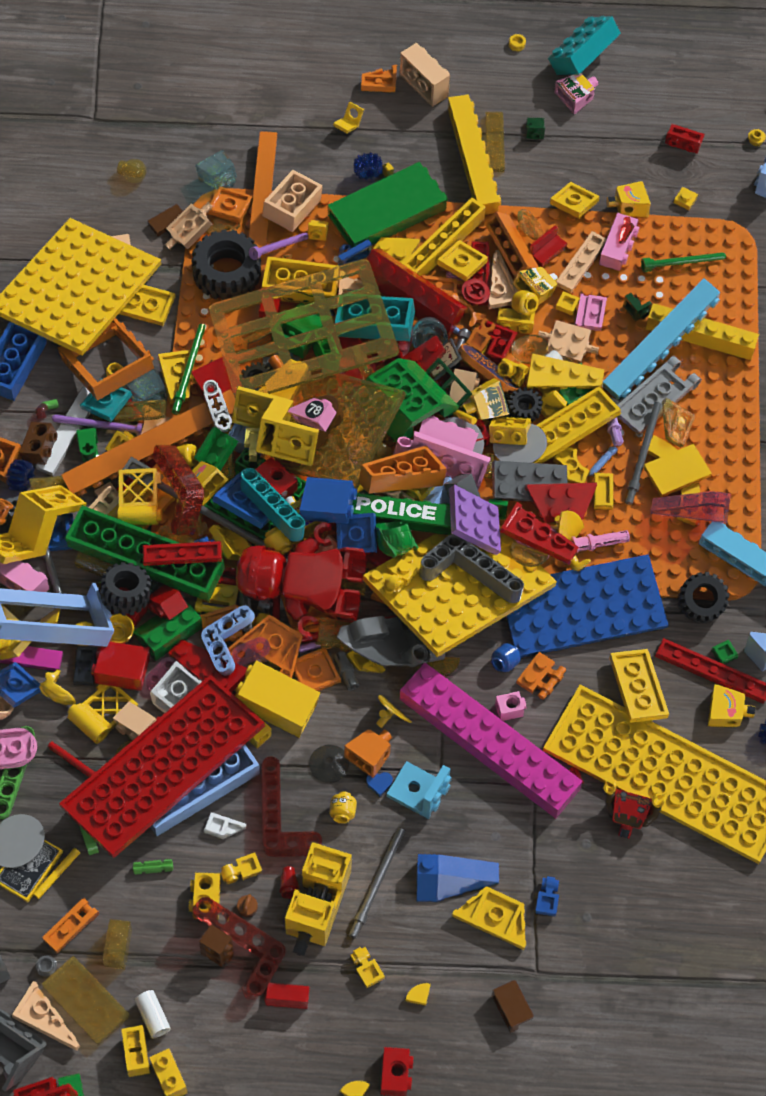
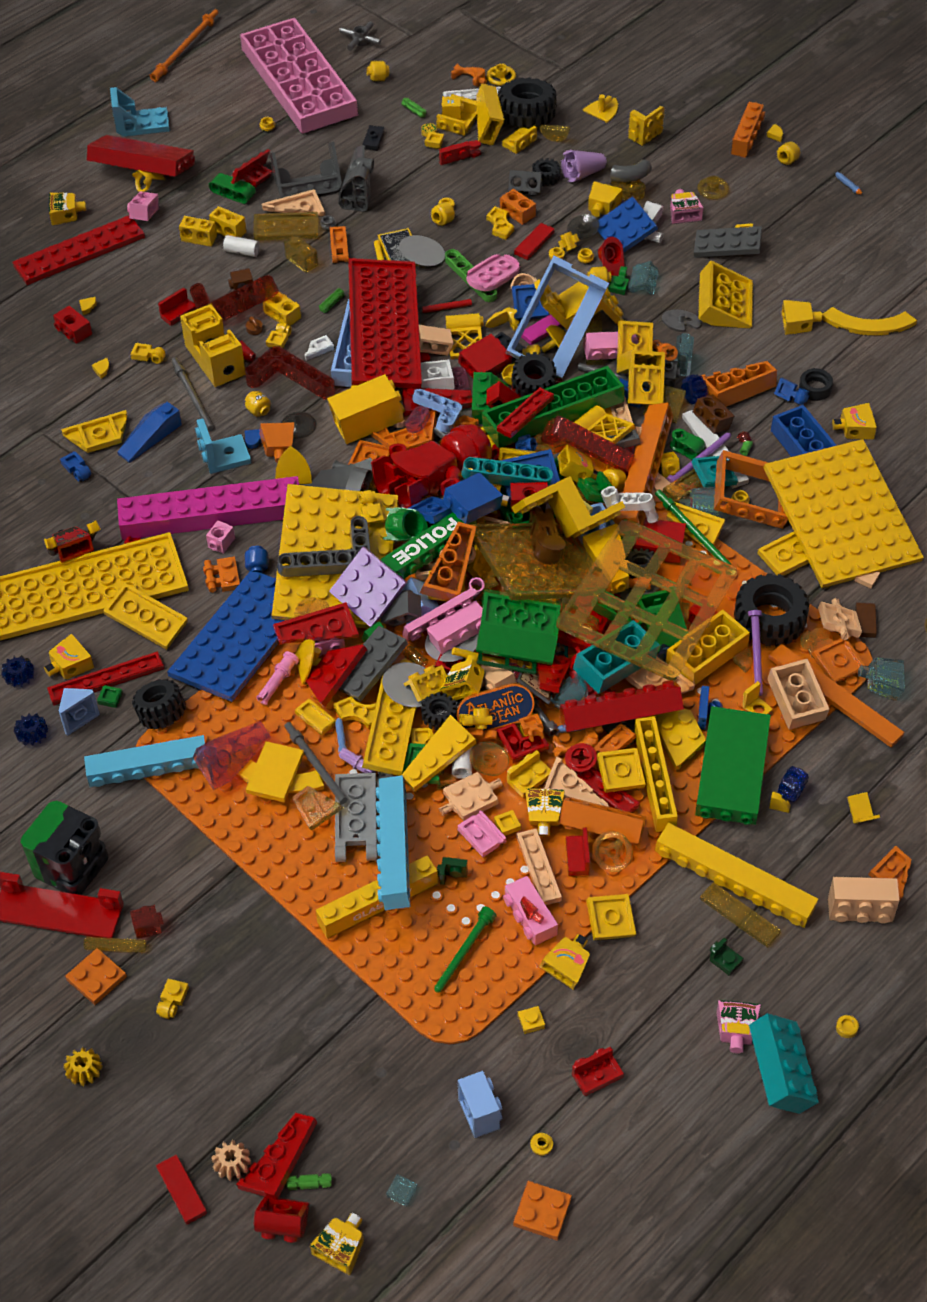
camera: 135 degrees right, 10 degrees down
(314, 413) = (548, 525): bright pink slope -> none
(512, 1005) = (37, 397): reddish brown panel -> none
(524, 302) = (532, 778): yellow head -> none
(554, 399) = (422, 734): yellow tile -> none
(578, 566) = (275, 647): yellow animal -> none

